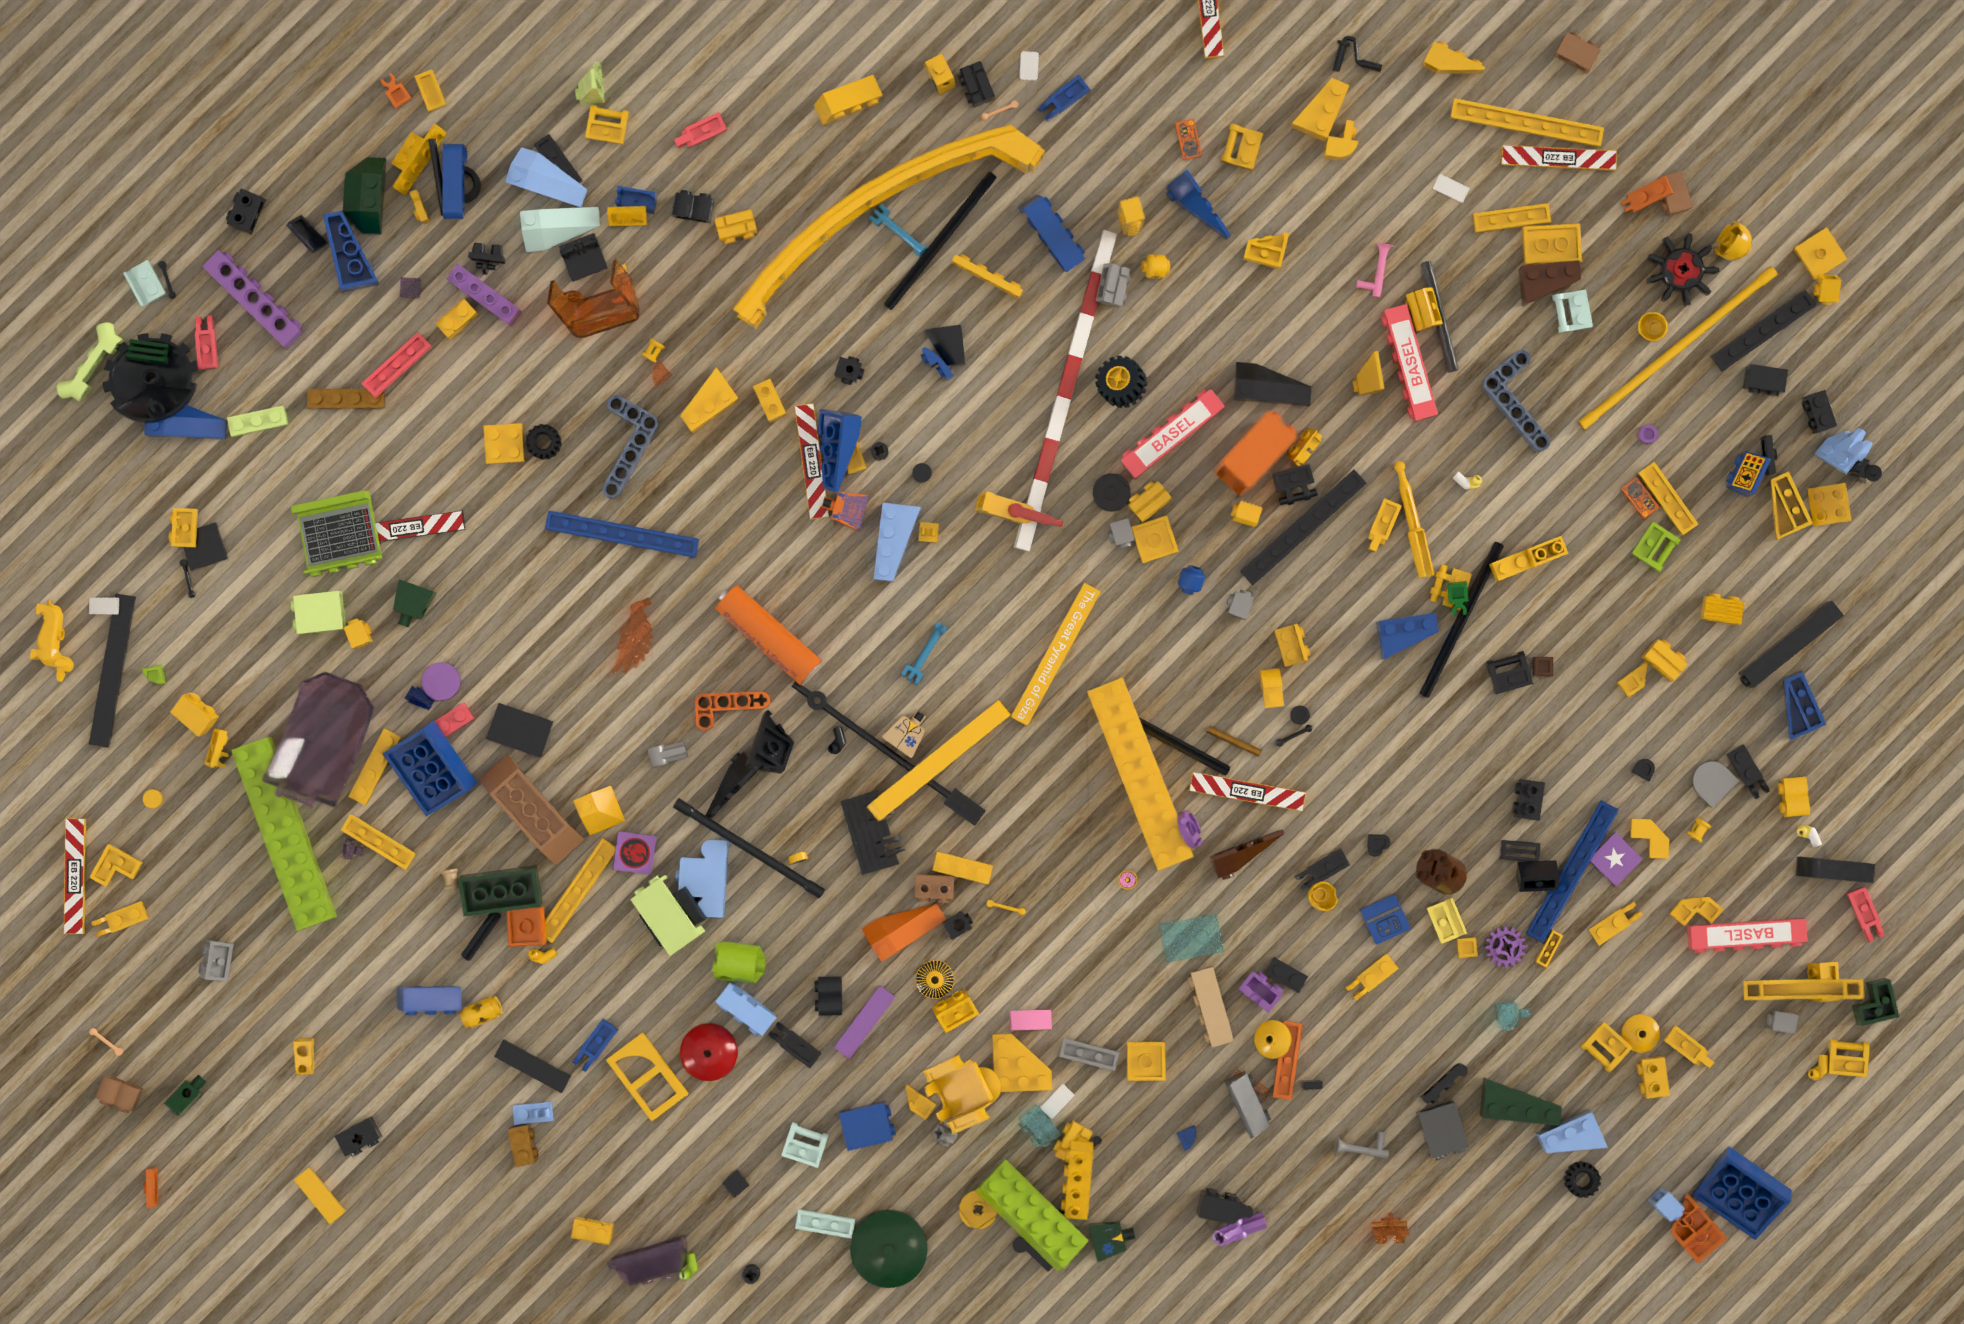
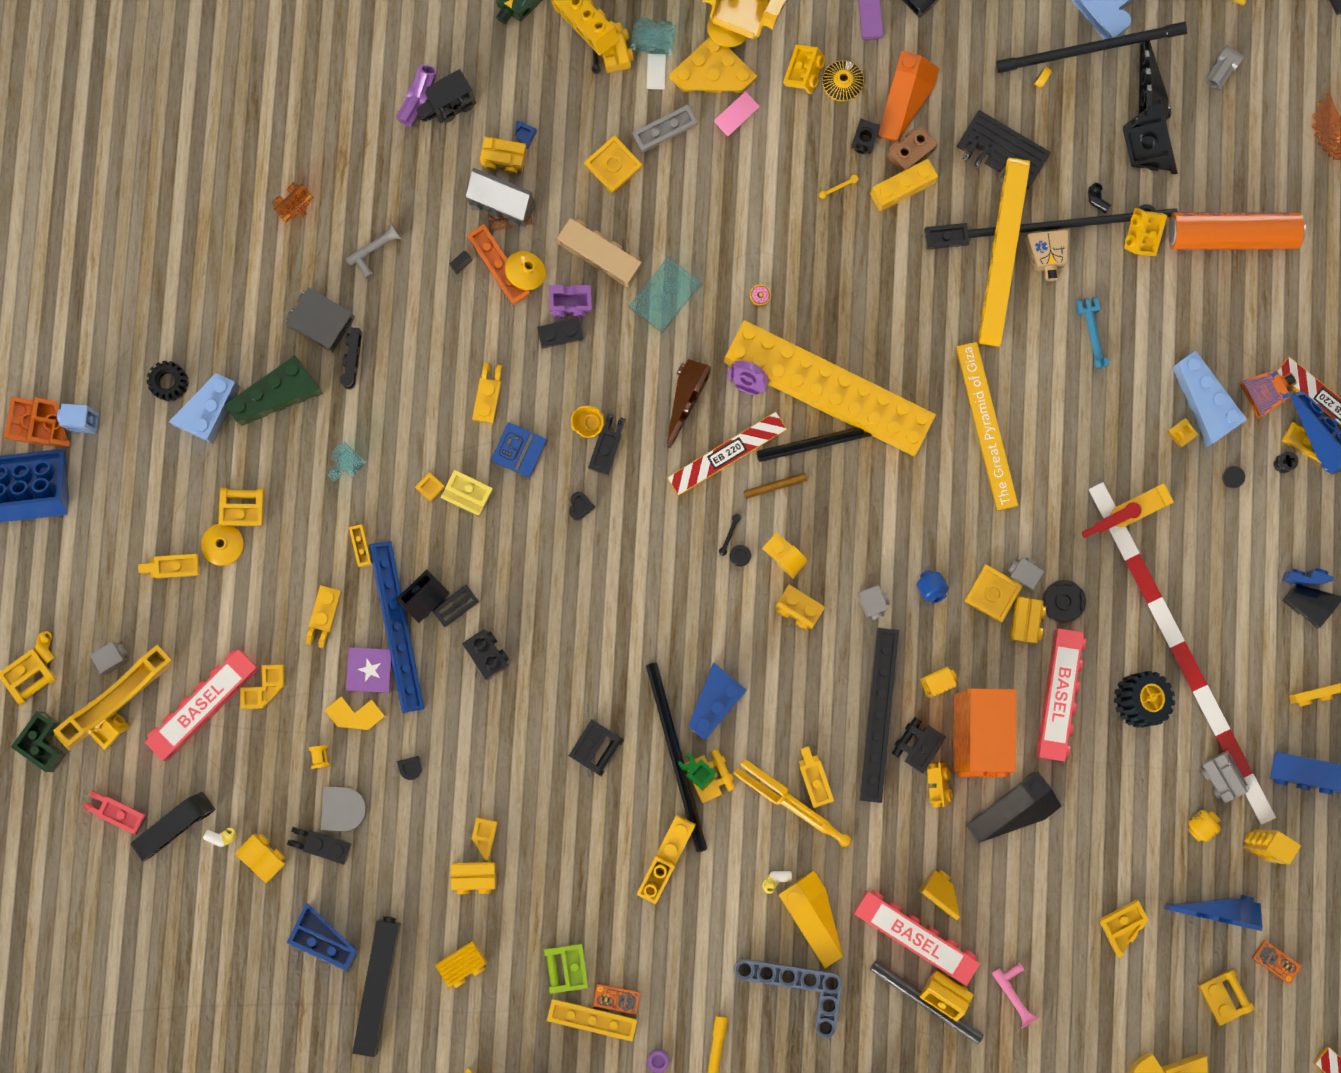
camera: 140 degrees right, 5 degrees down
(732, 705) = (1210, 152): orange beam -> none
(830, 688) = (1145, 232): none -> yellow bracket
(1216, 1134) = (503, 155): none -> yellow brick
(1441, 871) = (507, 525): reddish brown cylinder -> none
(1463, 440) = (812, 913): none -> yellow wedge
(1493, 951) = (395, 523): medium lavender gear -> none
(1542, 666) = (572, 779): reddish brown tile -> none
(1653, 1077) = (180, 516): yellow brick -> none

